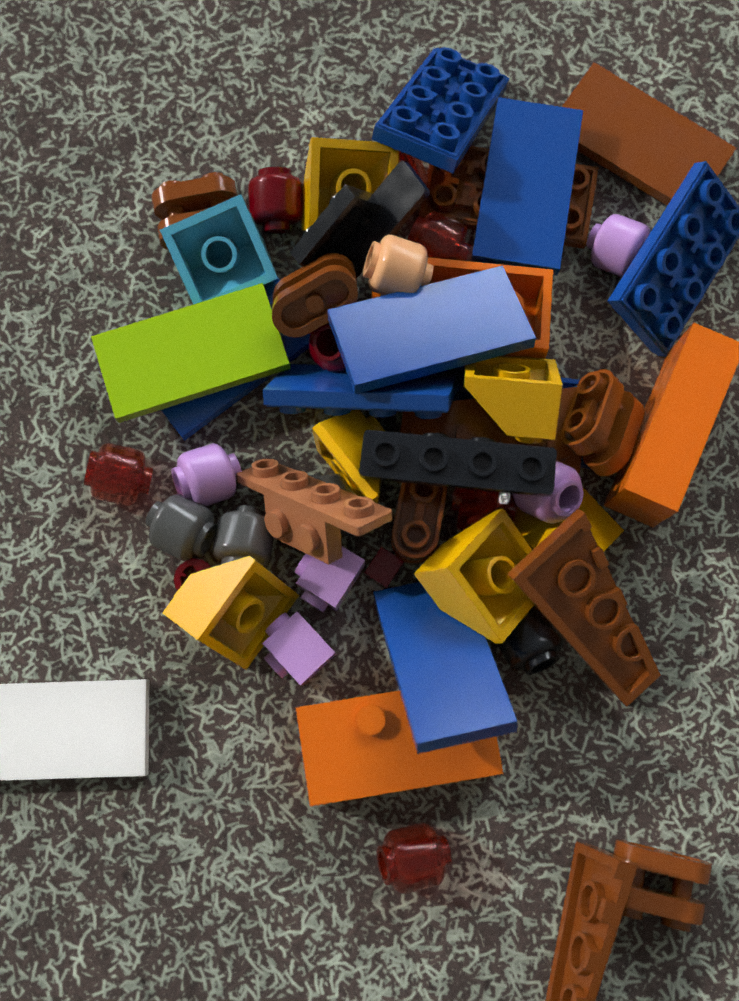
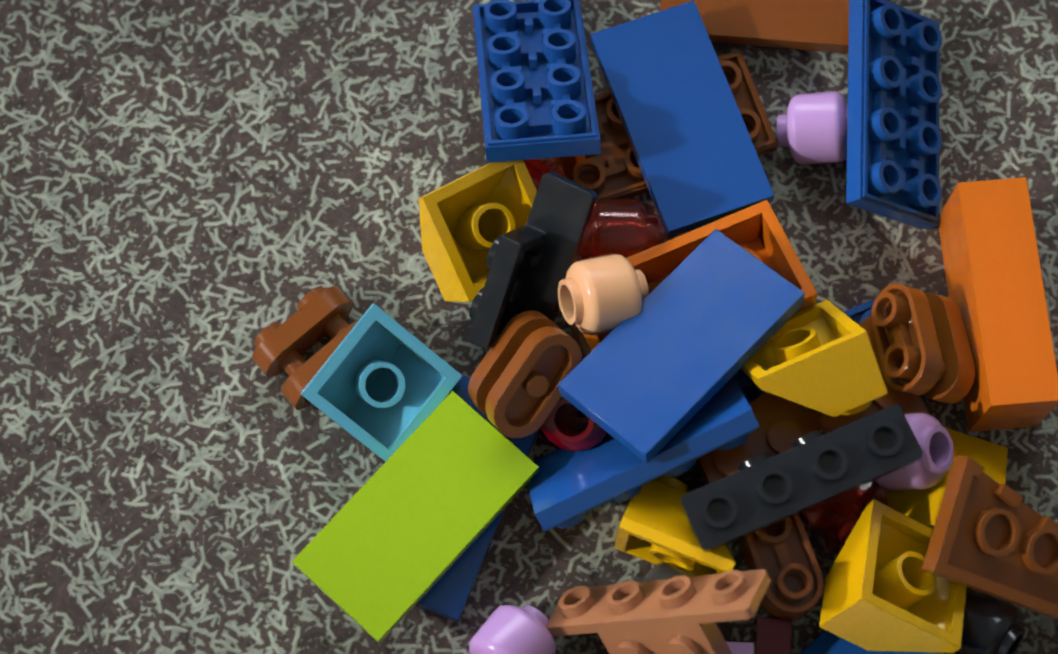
camera: 30 degrees left, 5 degrees down
(275, 199) = (399, 282): dark red head -> none

